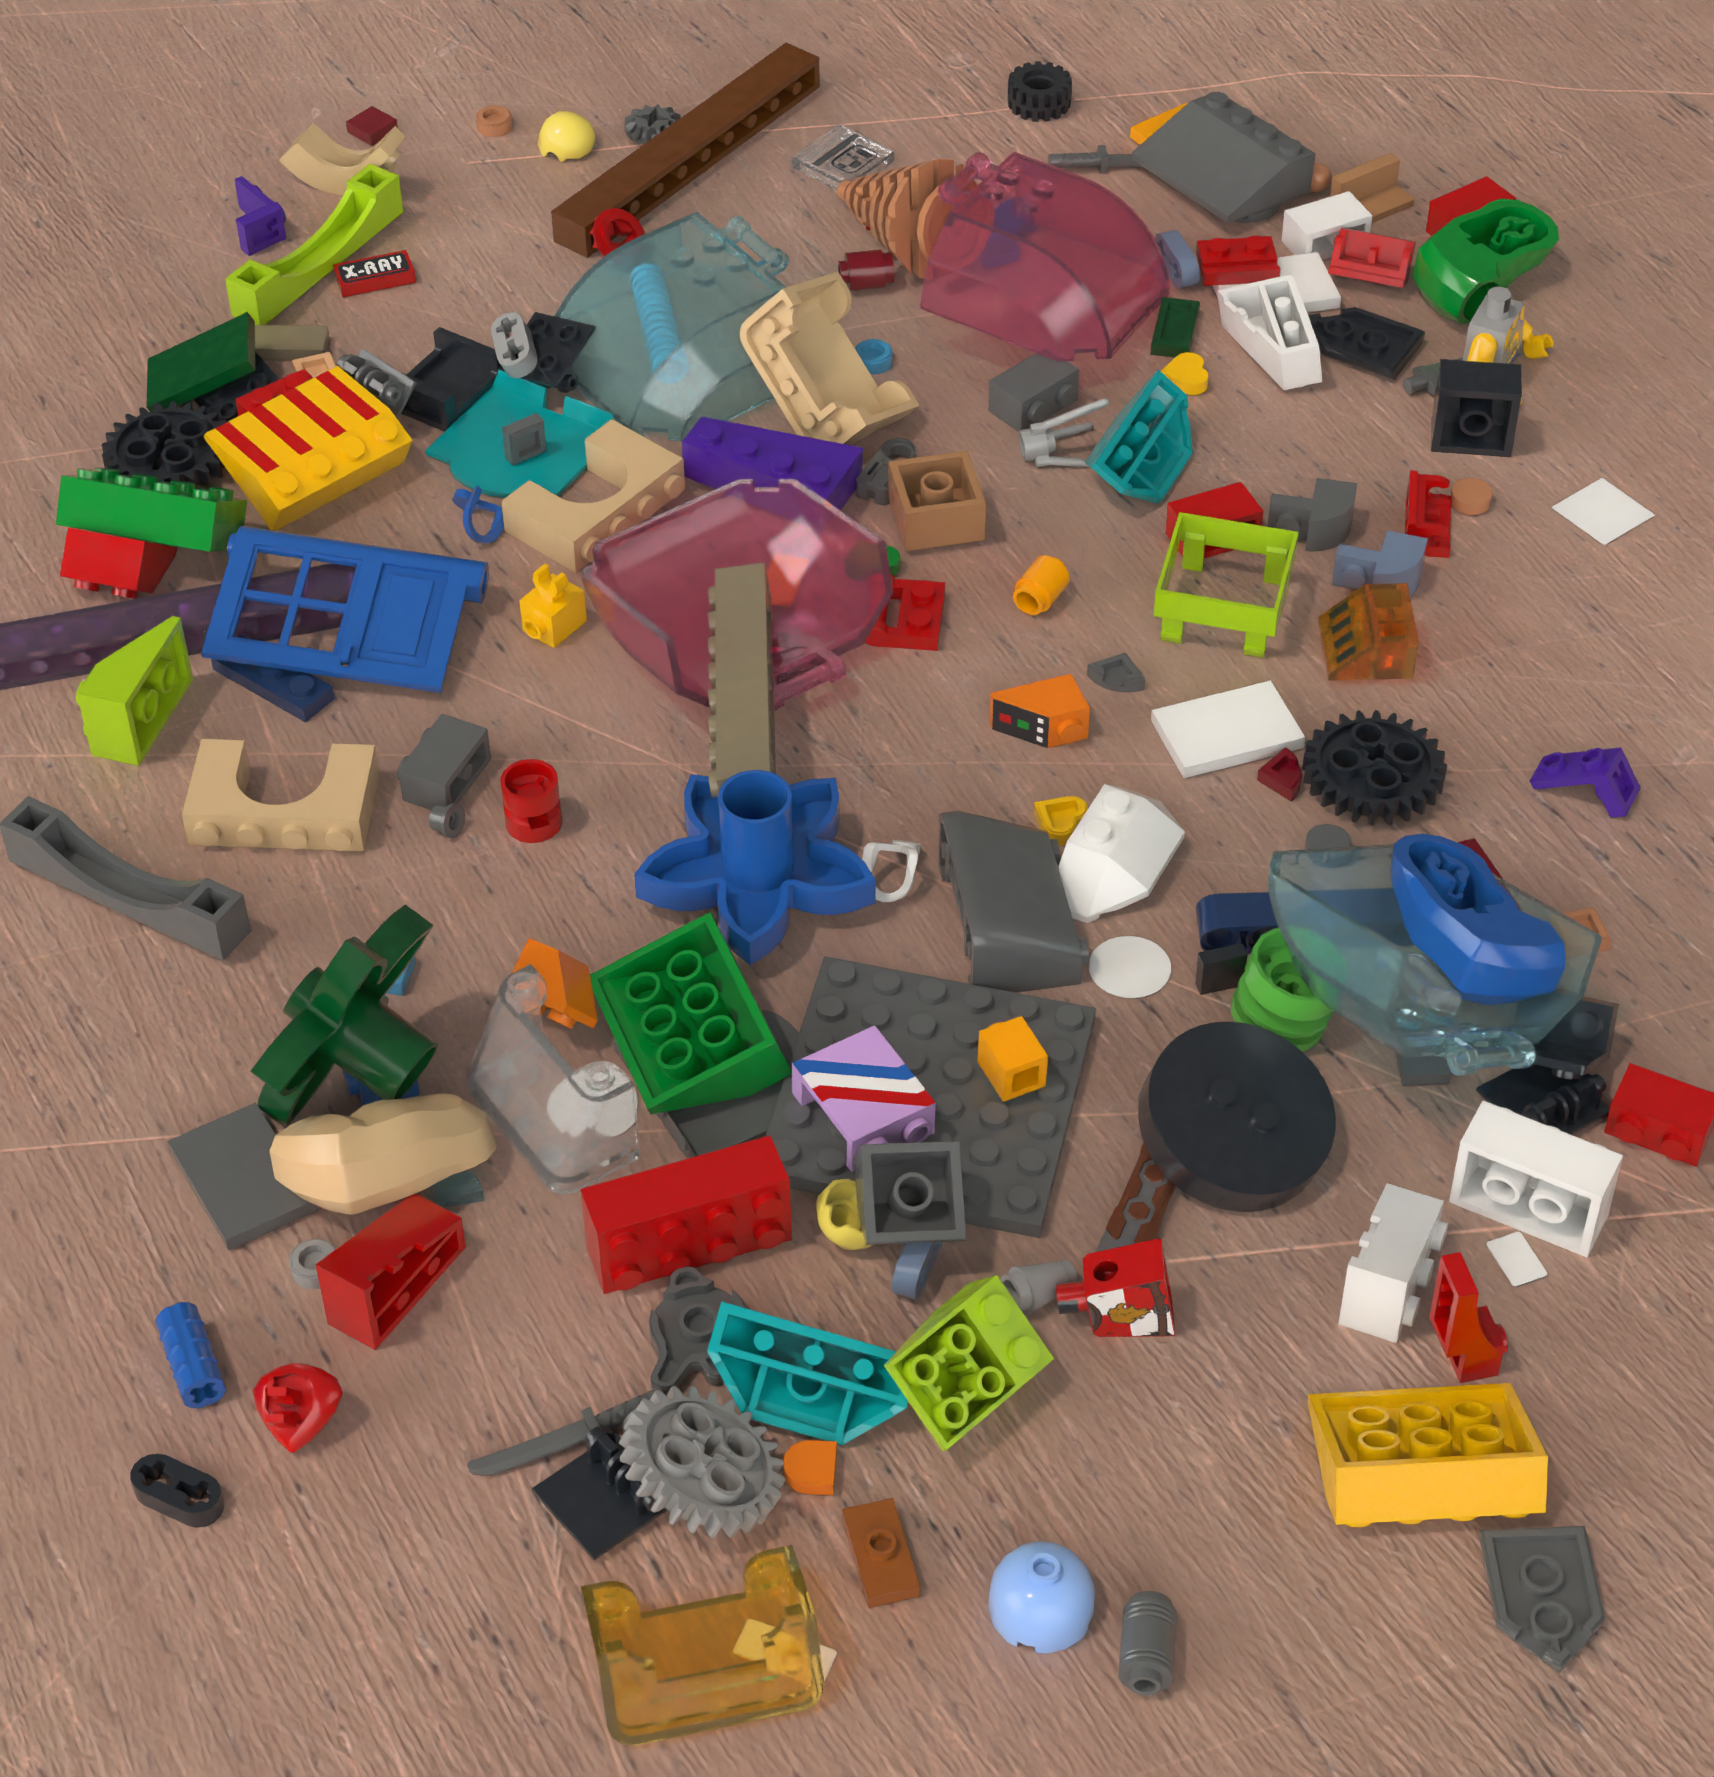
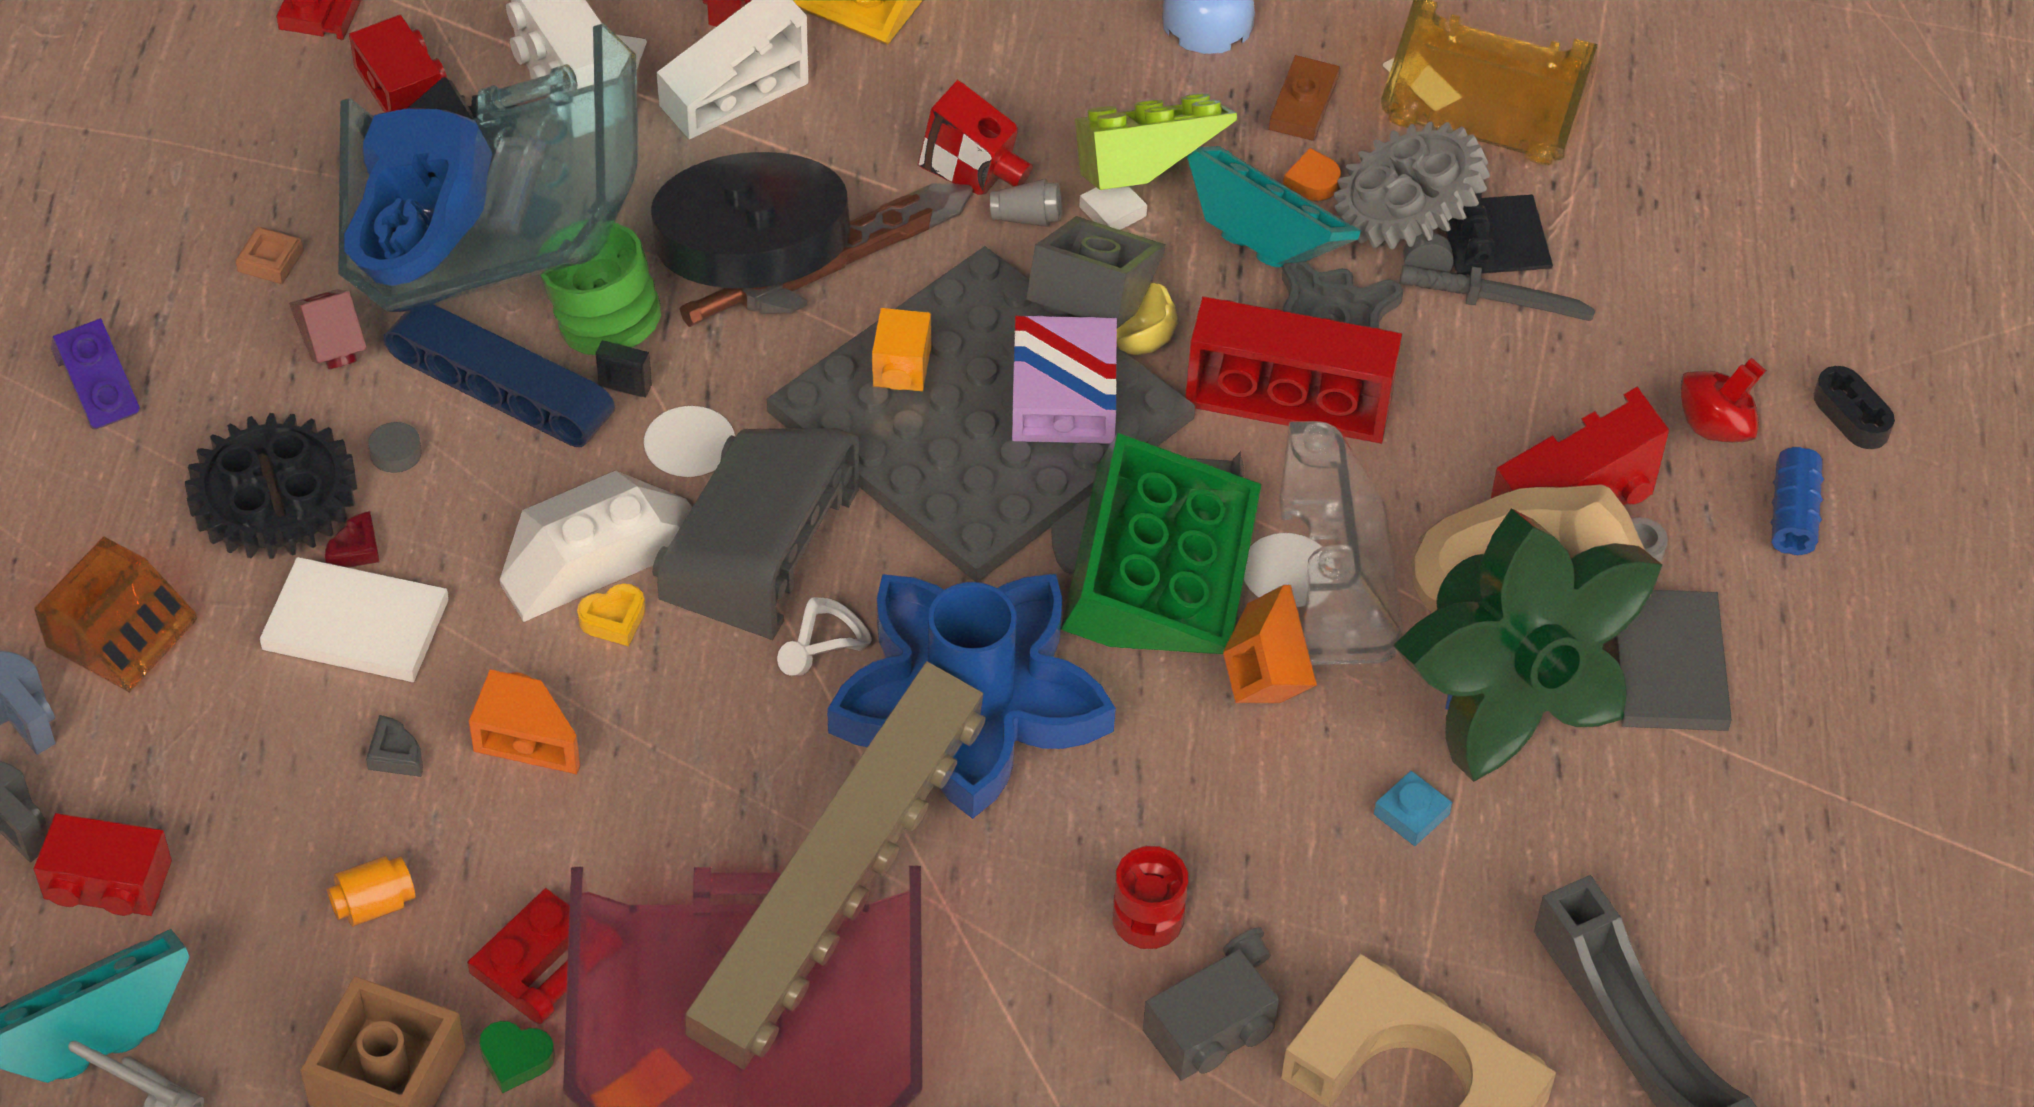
camera: 150 degrees left, 5 degrees up
(1255, 620) = (159, 690): lime piece -> none

